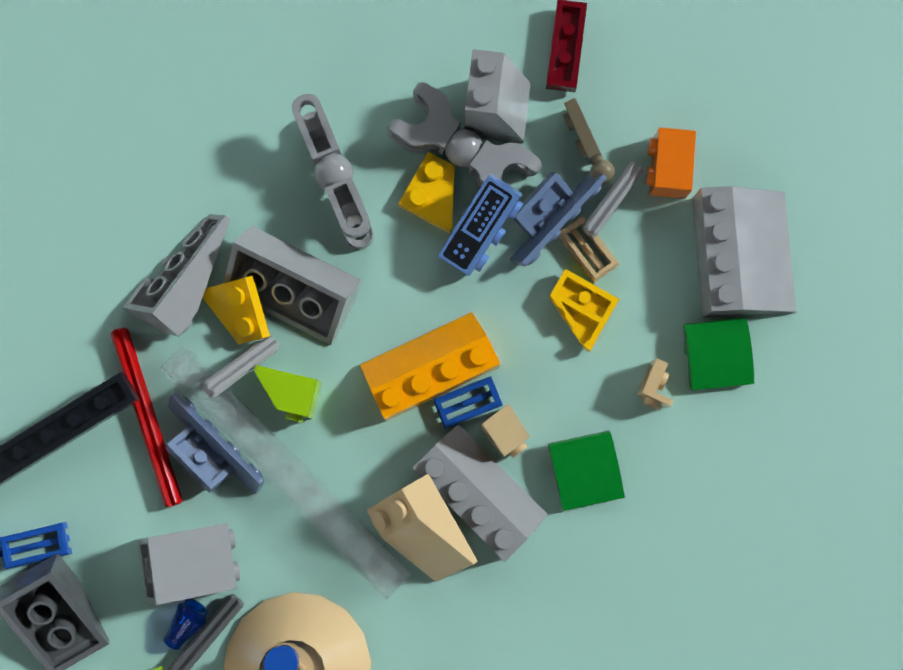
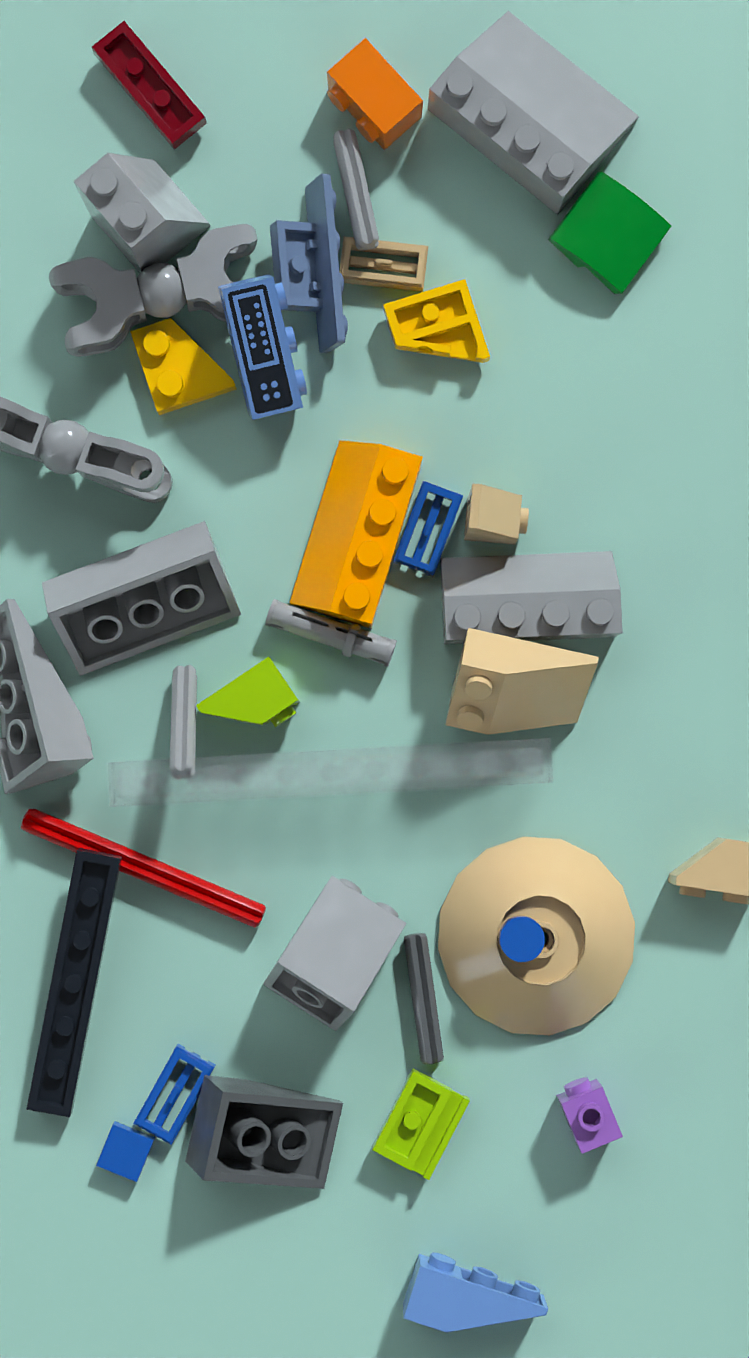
camera: 50 degrees left, 5 degrees up
(186, 621) = (392, 1007): clear blue cone -> none
(206, 452) = (237, 836): sand blue bracket -> none
(238, 309) = (118, 674): yellow wing -> none
(363, 402) = (345, 637): none -> light grey pin
(586, 144) = (273, 160): dark tan plate -> none
(586, 470) = (604, 472): green slope -> none
(653, 380) = (577, 321): tan bracket -> none

